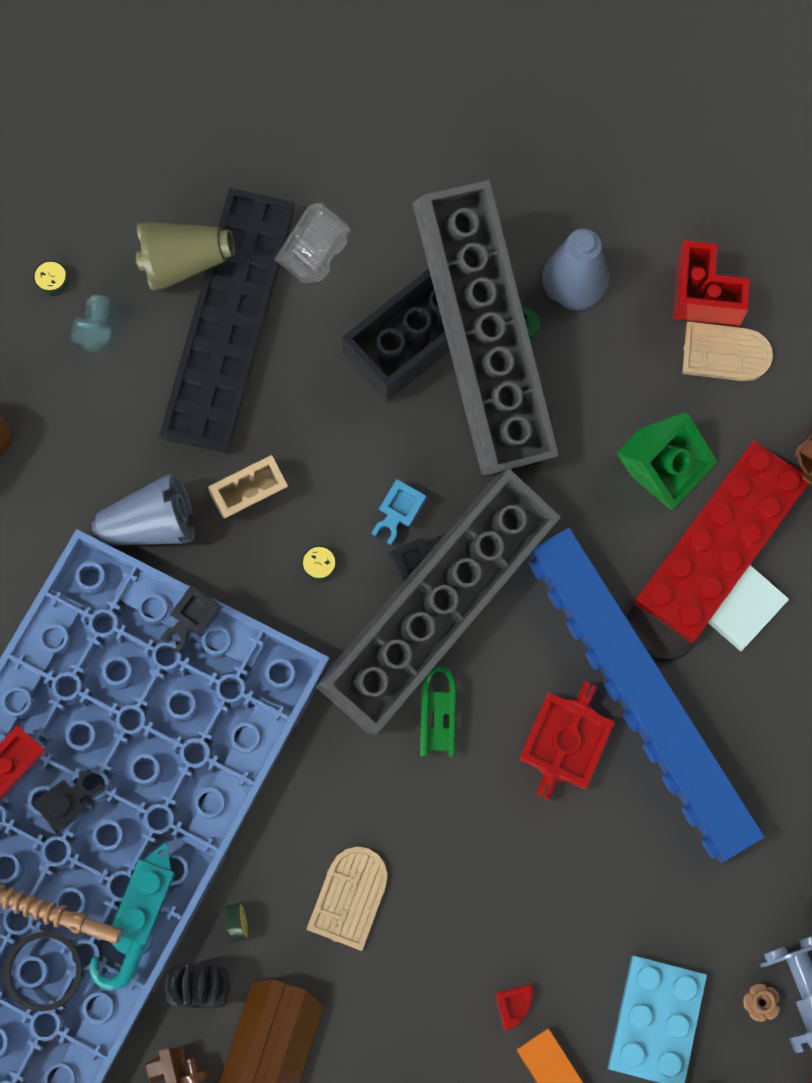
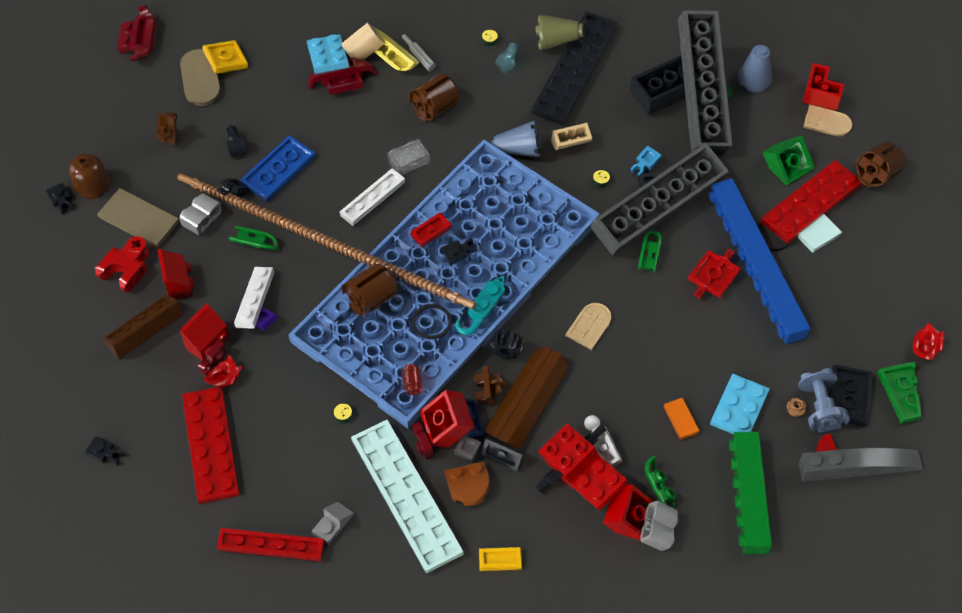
camera: 15 degrees right, 15 degrees down
(194, 614) = (534, 181): black plate -> none
(236, 922) = (531, 323): clear green tile -> none
(313, 244) = (624, 39): clear brick -> none
(514, 1005) = (666, 386): red tile -> none

